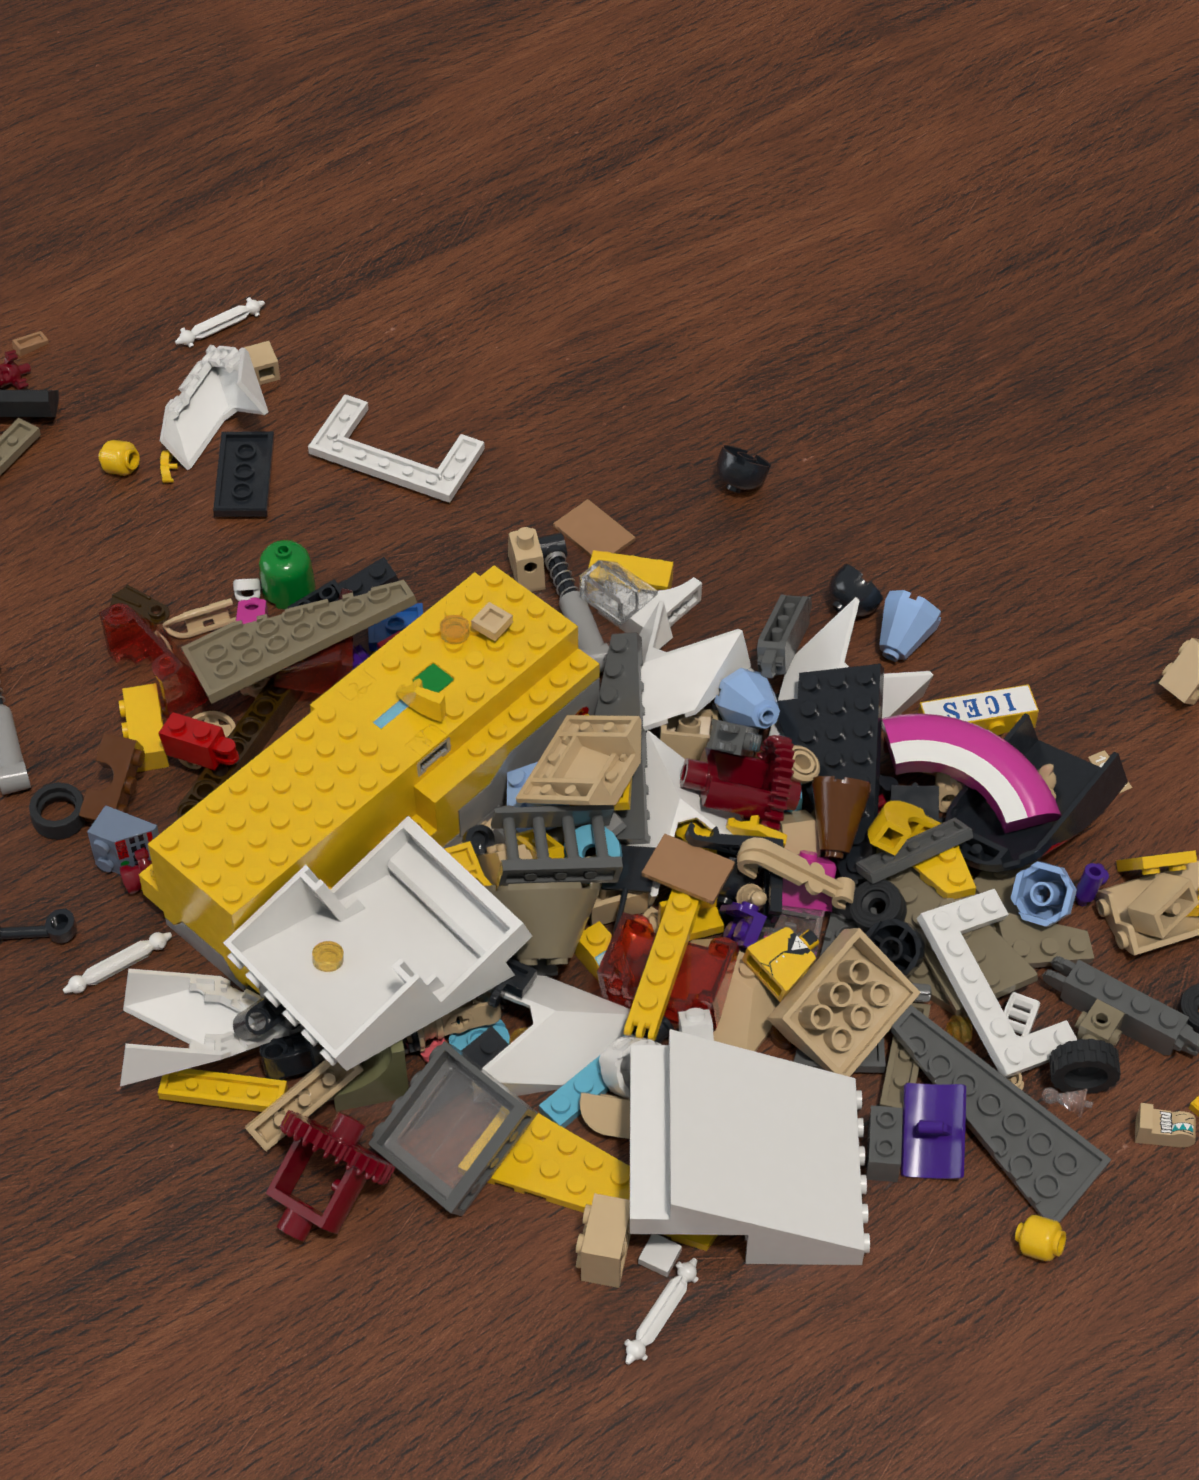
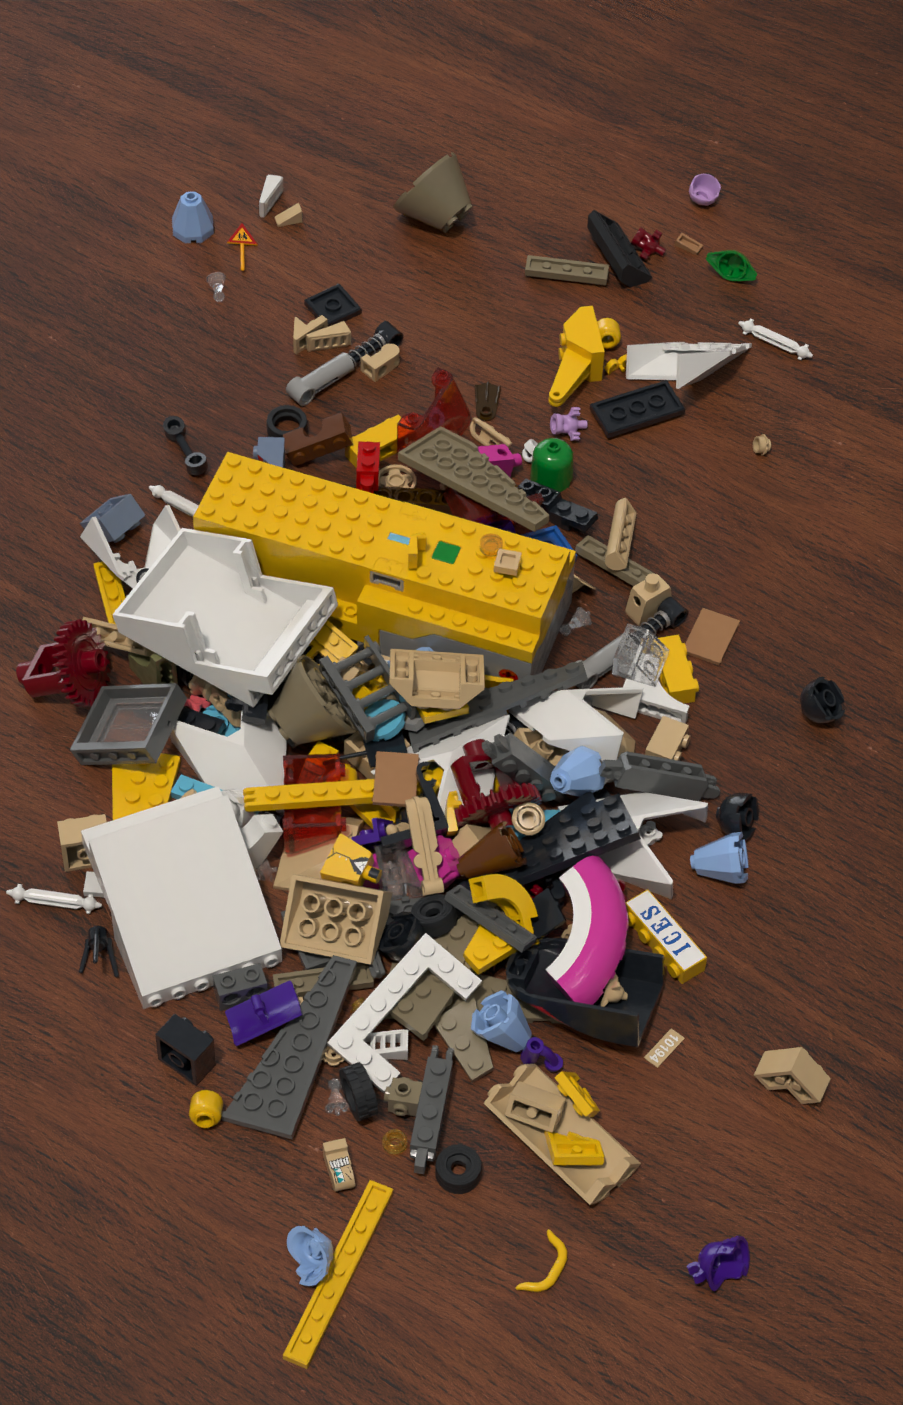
camera: 65 degrees right, 0 degrees up
(22, 689) = (381, 362): none -> tan leg
(92, 1047) = (117, 517): none -> sand blue slope
(96, 313) = (732, 265): none -> green hat
(141, 485) = (580, 355): none -> yellow slope
(227, 543) = (568, 424): none -> lavender piece
(264, 362) = (748, 377): tan brick -> none
(327, 956) = (206, 591): clear yellow tile -> none
(359, 393) = (761, 444): none -> tan plate
(422, 551) = (620, 535): none -> tan brick
(442, 483) = (697, 523): white plate -> none
(457, 570) = (596, 553): none -> dark tan plate
(722, 613) = (668, 739): none -> tan brick
(749, 1278) = (97, 941): none -> black plant
(959, 1226) = (185, 1049): none -> black brick
(1147, 1054) = (394, 1135): none -> clear yellow plate

